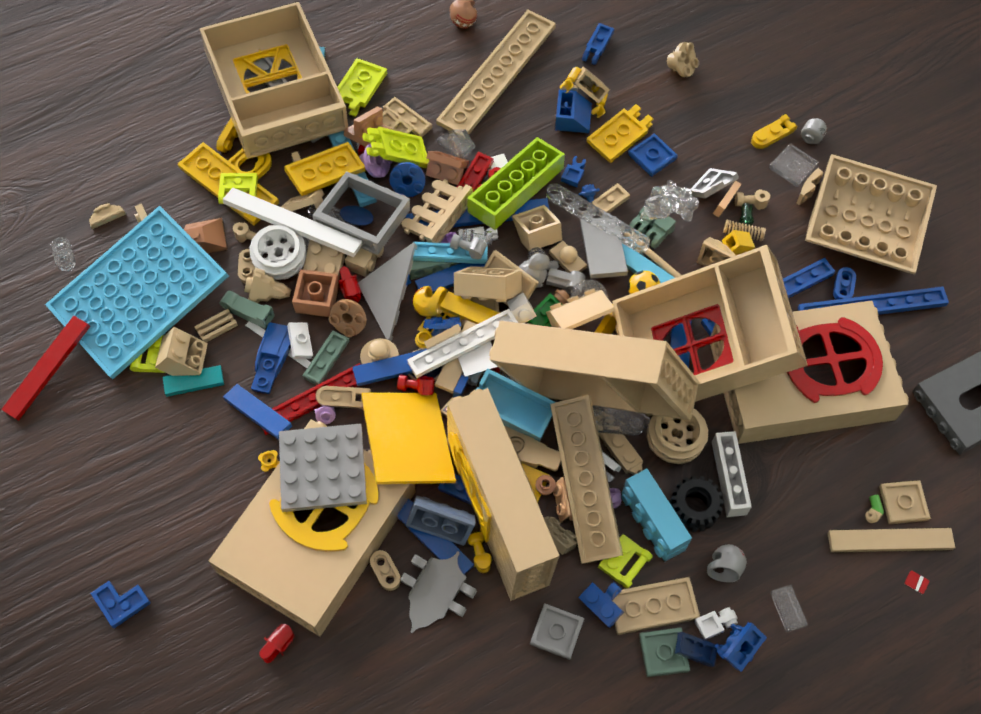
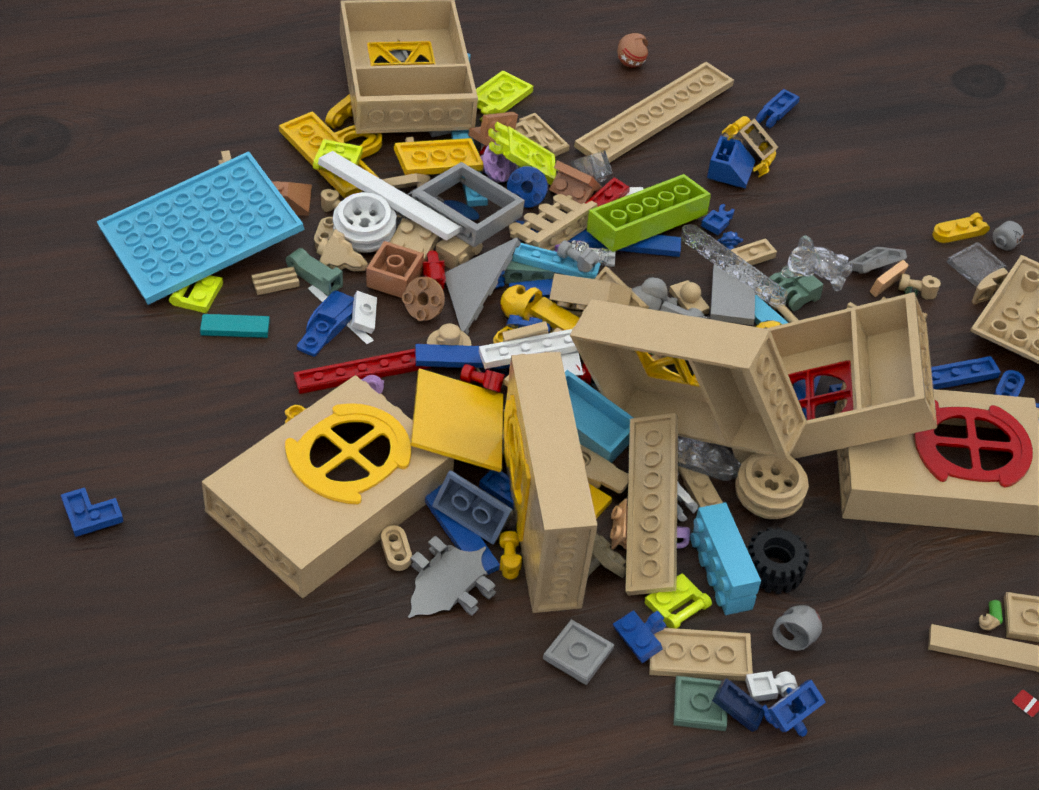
camera: 10 degrees right, 15 degrees down
(46, 368) = (79, 278): red tile -> none
(63, 252) = (130, 182): clear plate -> none
(105, 214) = (187, 156): tan tile -> none
(181, 353) = (229, 294): tan slope -> none
(257, 411) = (297, 366): tile -> none
(277, 643) = (252, 589): red arm -> none
(322, 467) = (354, 419): light grey plate -> none
(325, 358) = (388, 335): sand green tile -> none
(340, 396) = (393, 371): tan plate -> none
(538, 227) = (663, 261): tan slope -> none
(545, 490) = (601, 508): nougat plate -> none
(619, 133) = (781, 194): yellow tile -> none
(652, 154) = (814, 222): blue tile -> none
(683, 59) = (871, 139): tan plate -> none
(731, 474) = (826, 540): white brick -> none
(788, 608) = (862, 693): clear tile -> none

